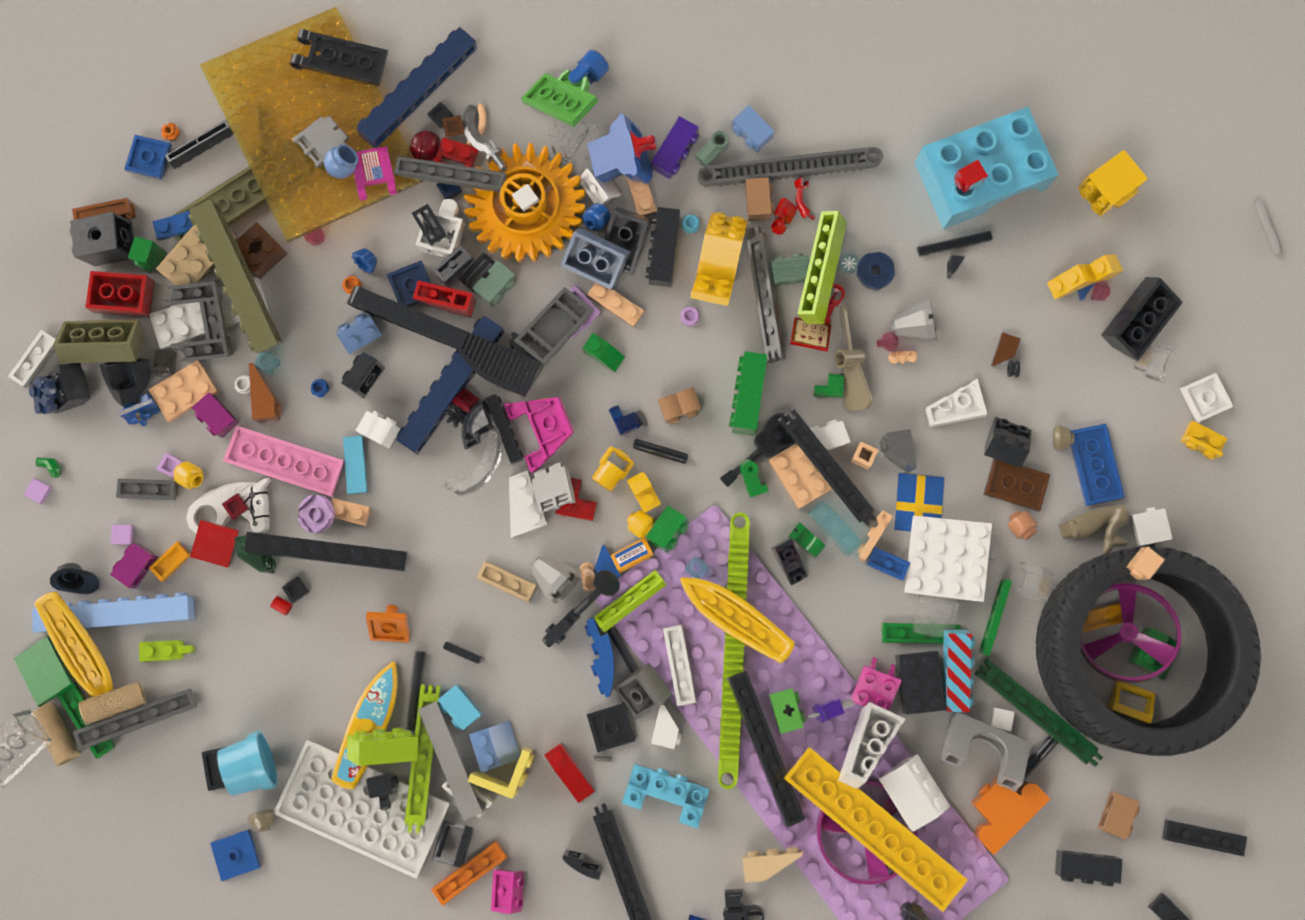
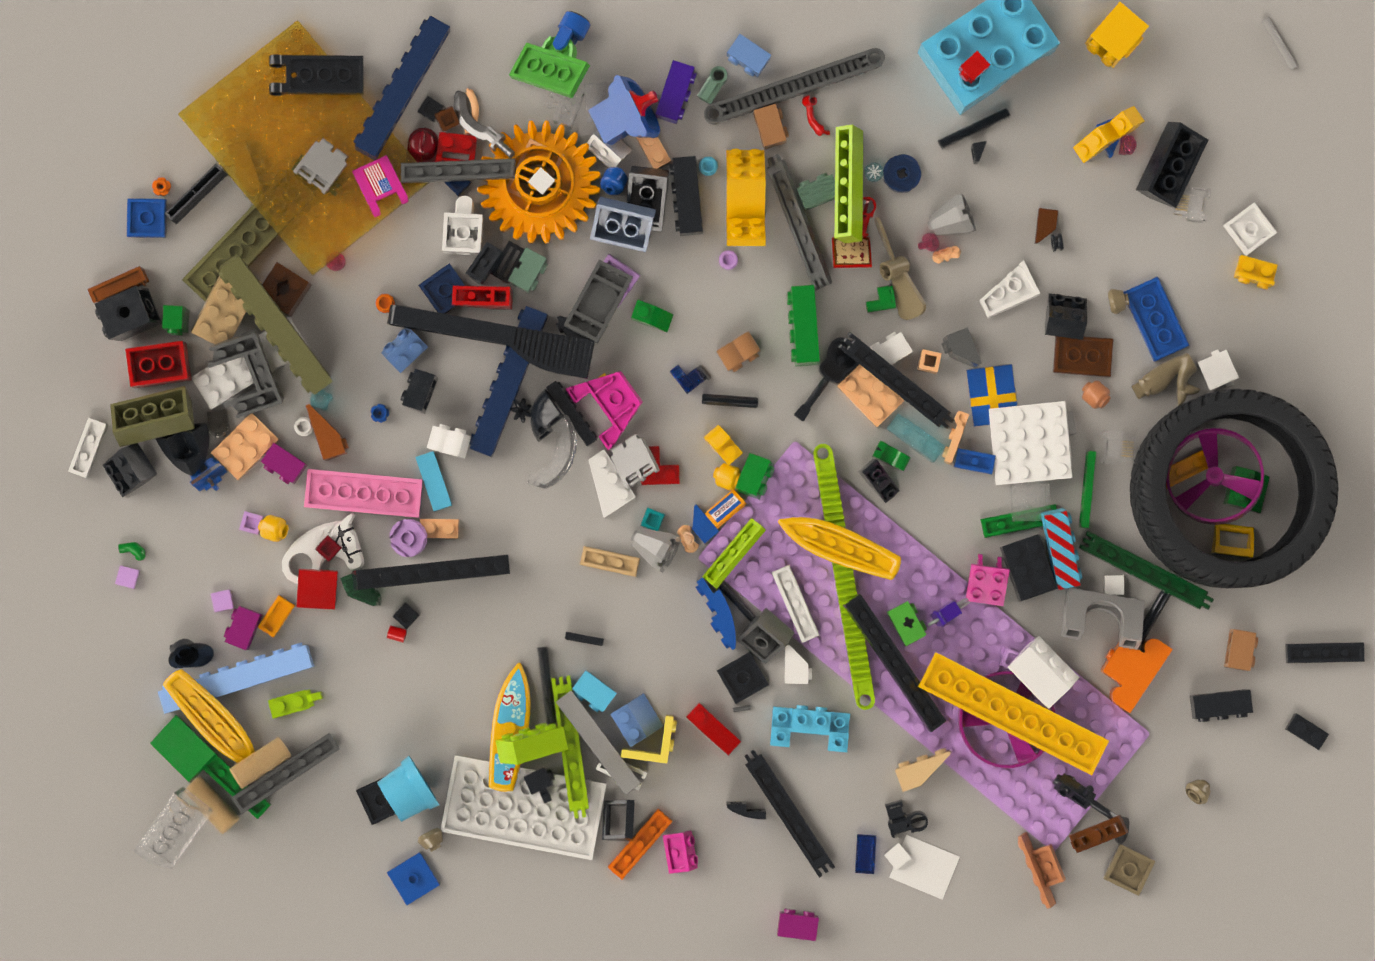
camera: 20 degrees left, 5 degrees up
(43, 394) = (110, 490): dark blue plate -> none
(146, 489) = (235, 551): dark grey plate -> none
(172, 226) = (193, 283): blue plate -> none
(340, 161) = (348, 183): medium blue piece -> none
(365, 260) = (393, 275): blue piece -> none
(388, 625) = (507, 629): orange tile -> none
(437, 238) = (462, 239): black tile -> none
(465, 400) = (527, 393): dark red tile -> none
(558, 550) = (652, 519): none -> teal tile
(605, 584) = (707, 542): black piece -> none
(607, 473) = (684, 435): yellow piece -> none
(616, 304) = (653, 264): light nougat plate -> none
(696, 561) = (784, 509): clear light blue brick -> none
(751, 480) = (822, 405): green leg -> none
(784, 212) = (799, 134): red plate -> none
(869, 741) = (991, 633): white wedge -> none
(1144, 564) = (1210, 410): light nougat brick -> none

